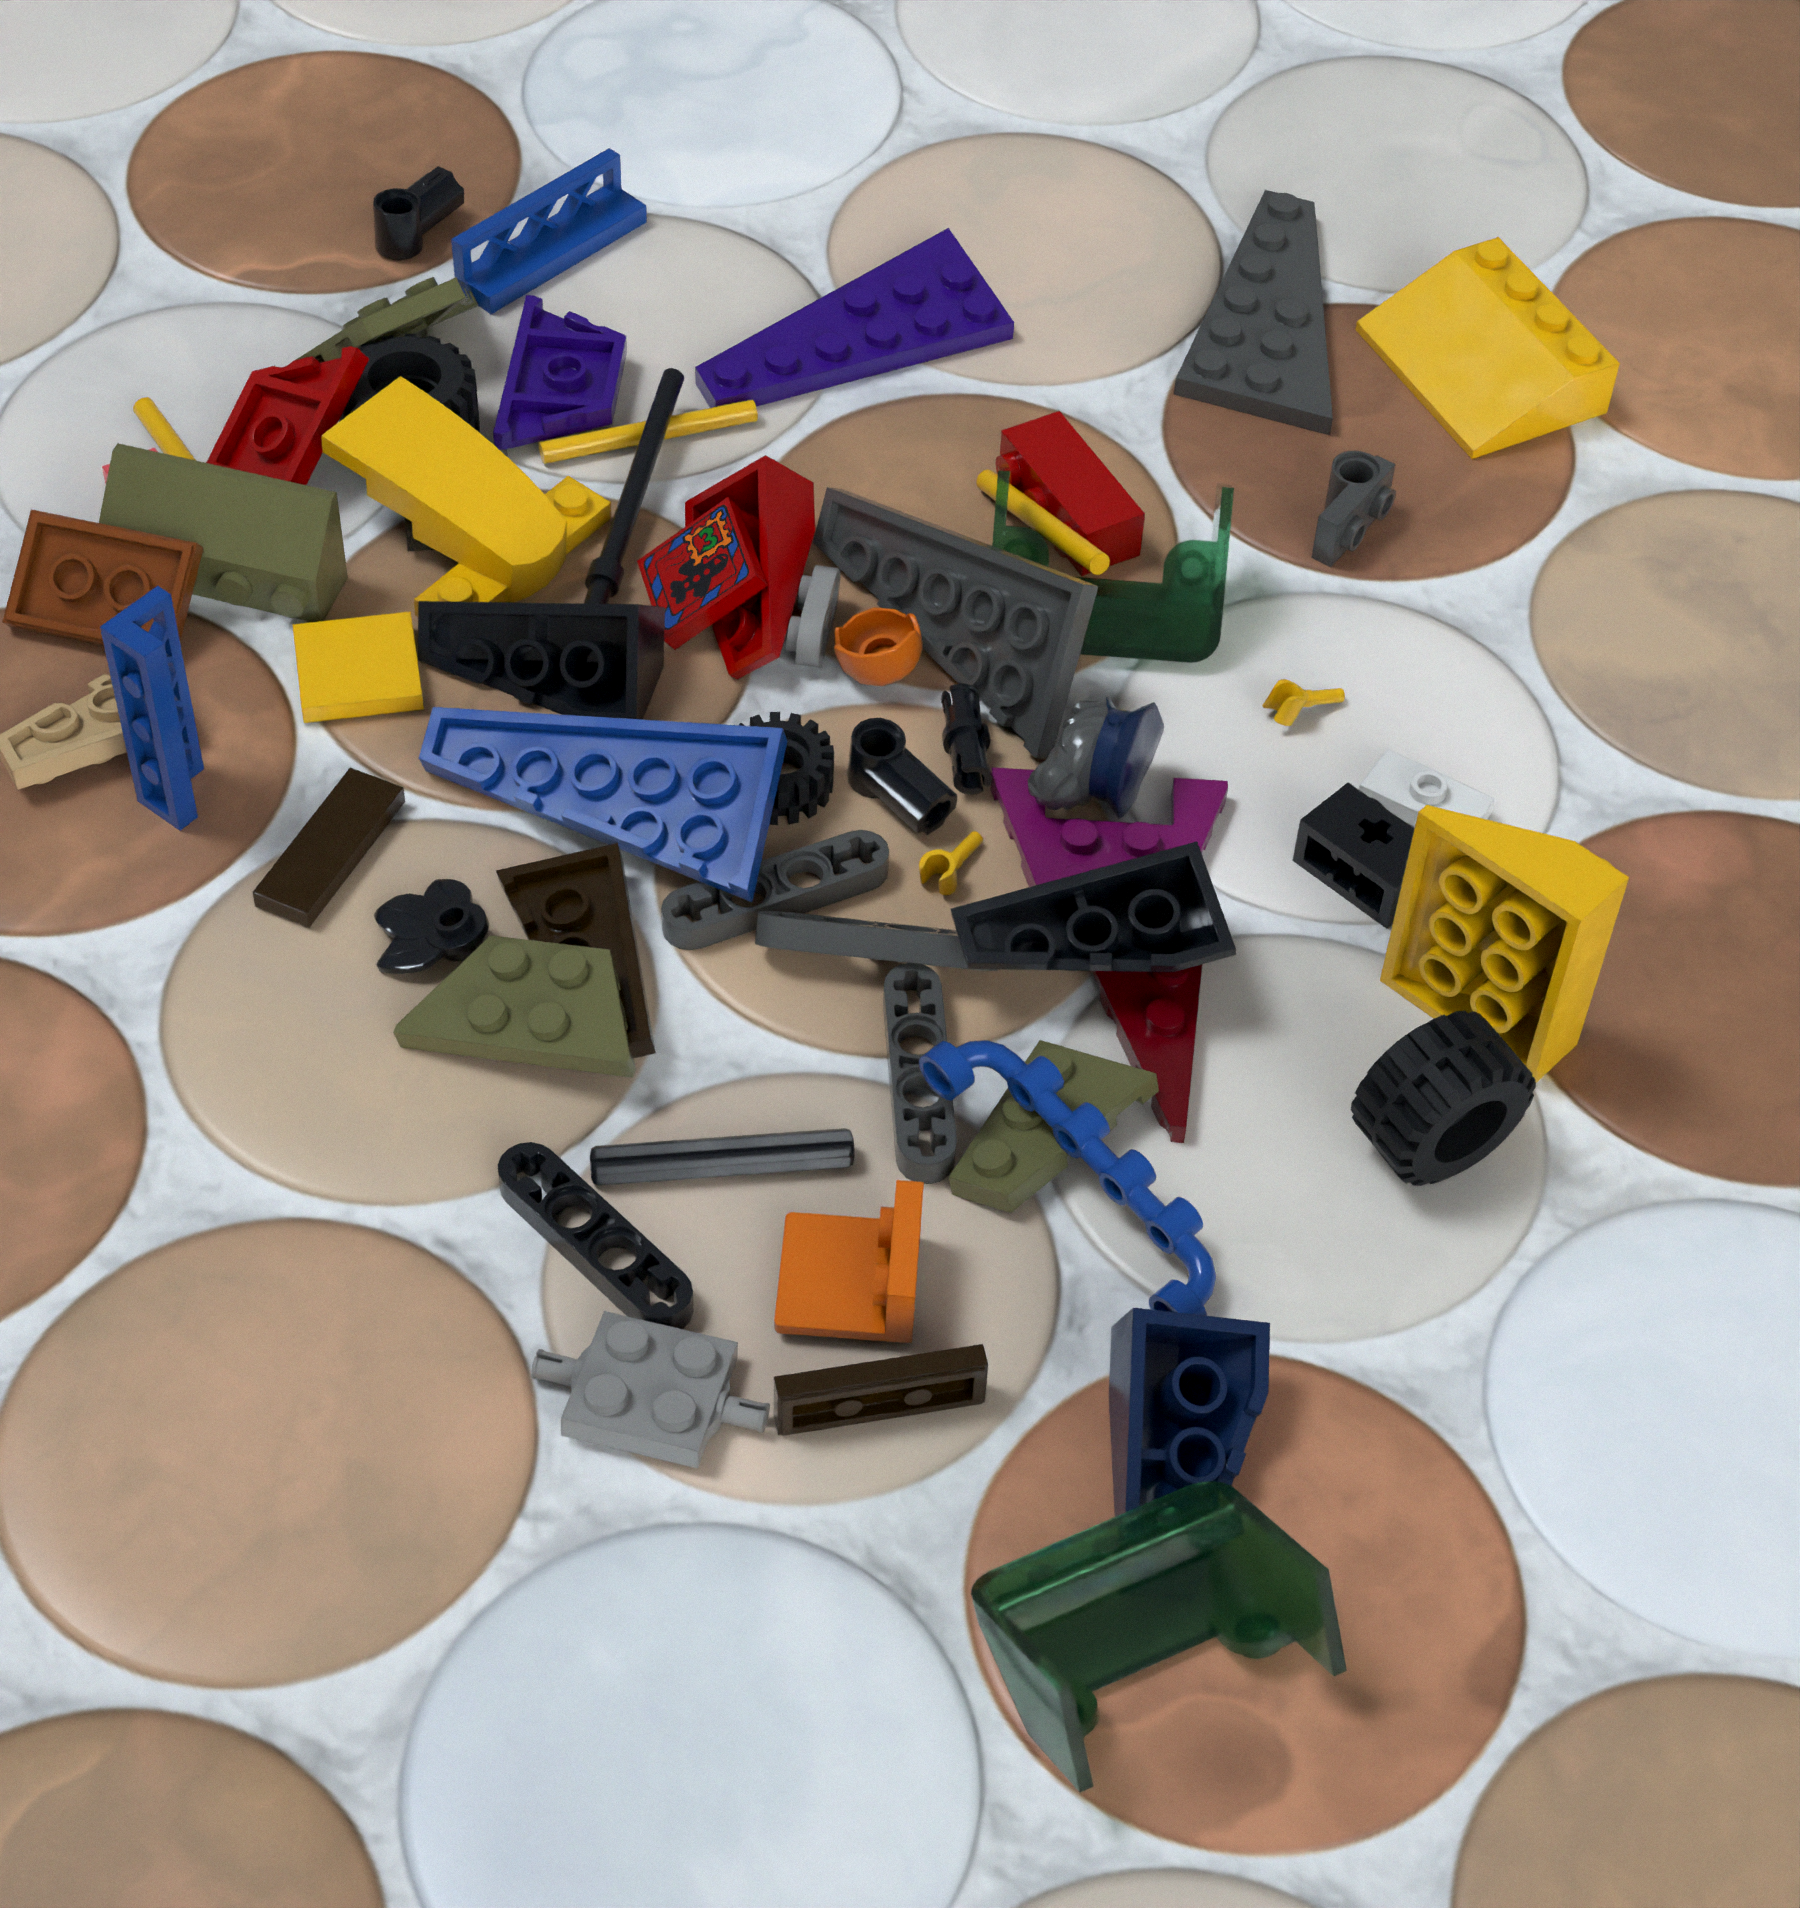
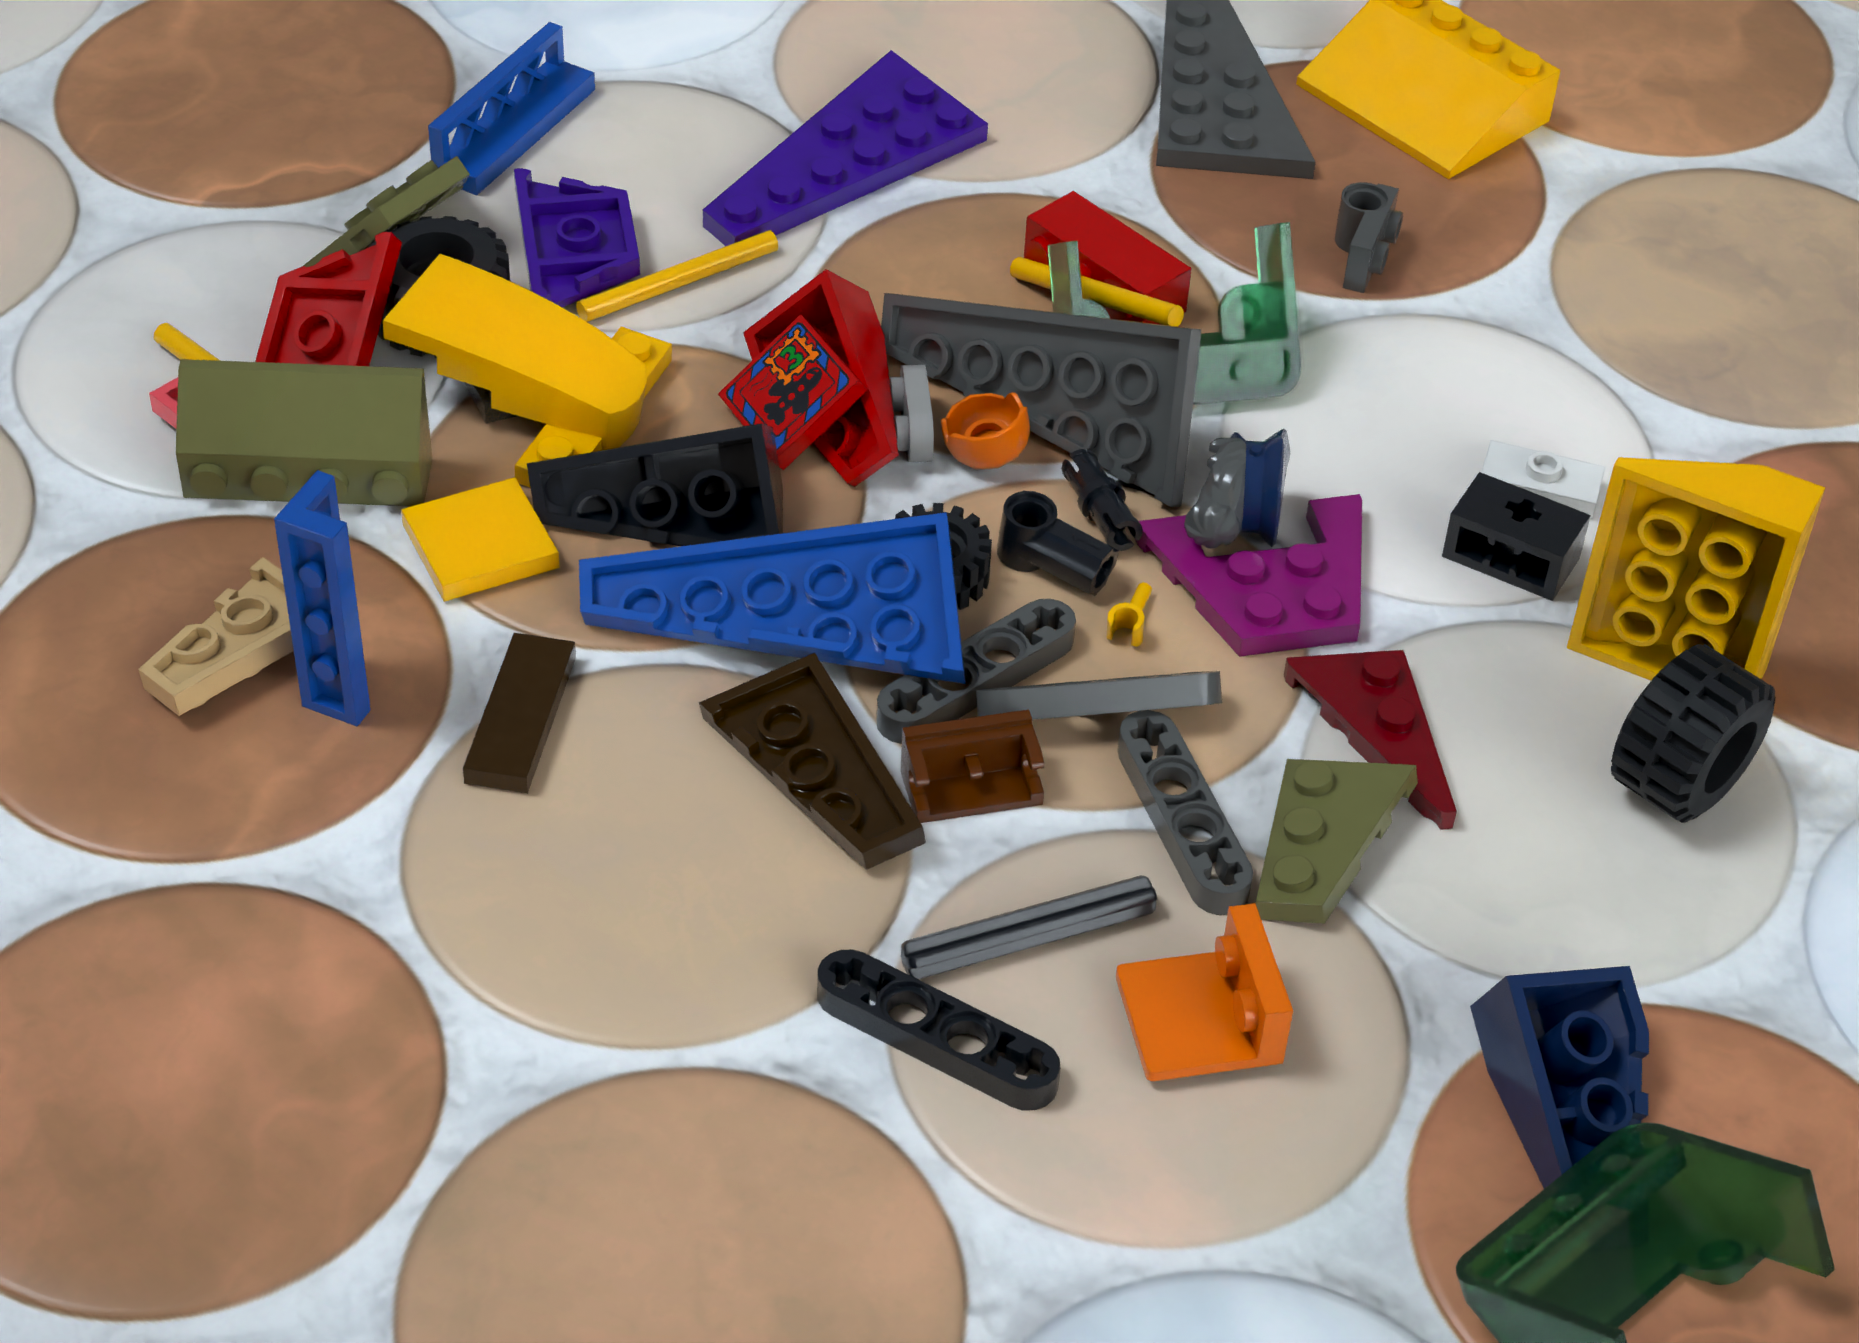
camera: 15 degrees left, 5 degrees down
(87, 572) = (193, 502): dark orange tile -> none
(408, 213) = (368, 111): black piece -> none
(430, 927) = (654, 768): black plate -> none
(527, 1007) = (789, 823): olive wing -> none
(606, 571) = (692, 408): black bar -> none
(650, 1389) = (1051, 1161): light grey plate -> none
(727, 986) = (972, 766): none -> reddish brown hinge
(880, 1390) = (1276, 1111): dark brown tile -> none
(1080, 1136) = (1487, 903): blue bar -> none
(1119, 917) = (1330, 628): black wedge -> none
(1290, 698) = (1384, 412): yellow hand -> none

